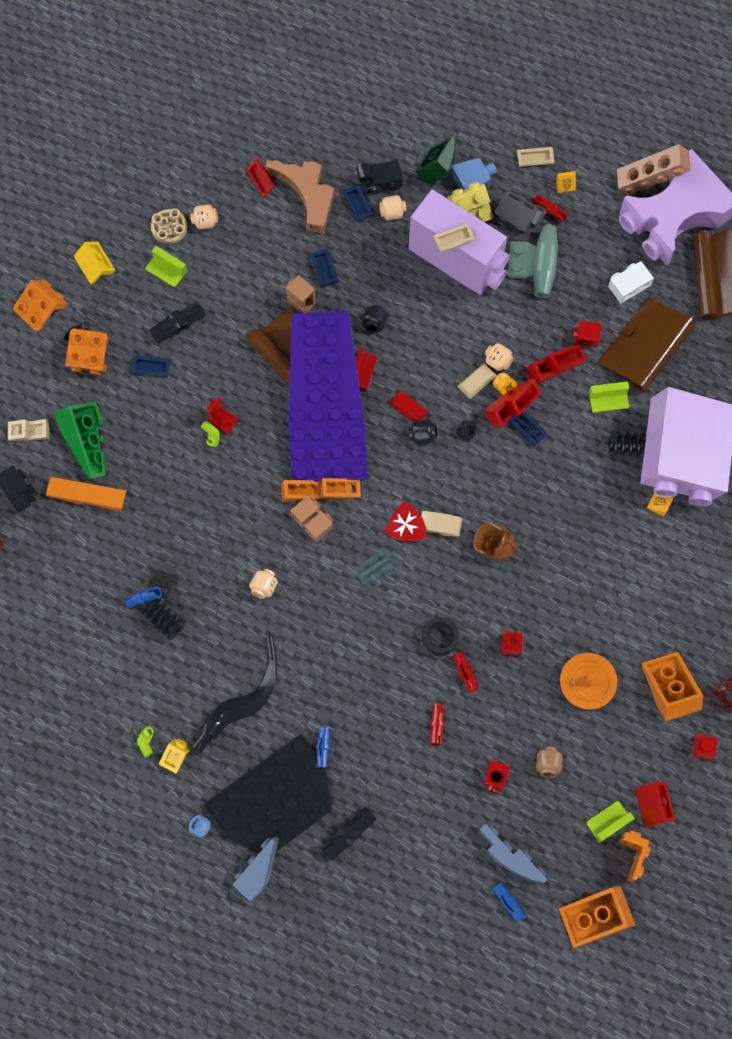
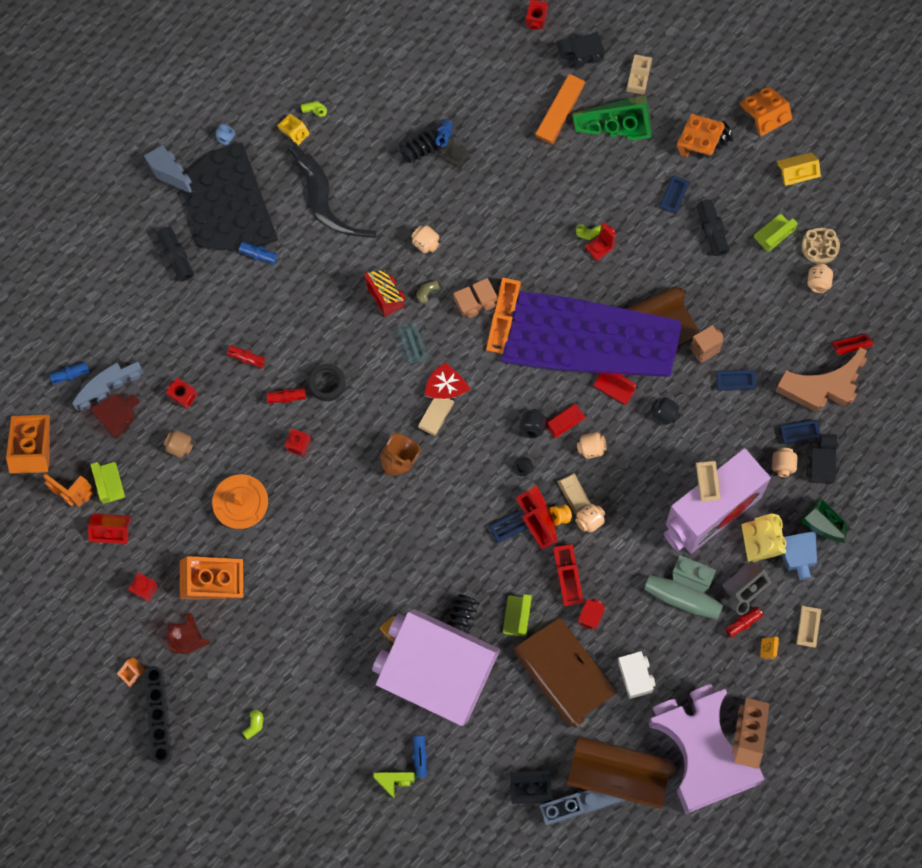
camera: 110 degrees right, 0 degrees up
(316, 571) = (425, 289): none -> olive arm
(331, 606) = (384, 292): none -> slope
(428, 374) = (592, 445): none -> light nougat head
(538, 836) = (116, 413): none -> clear red torso

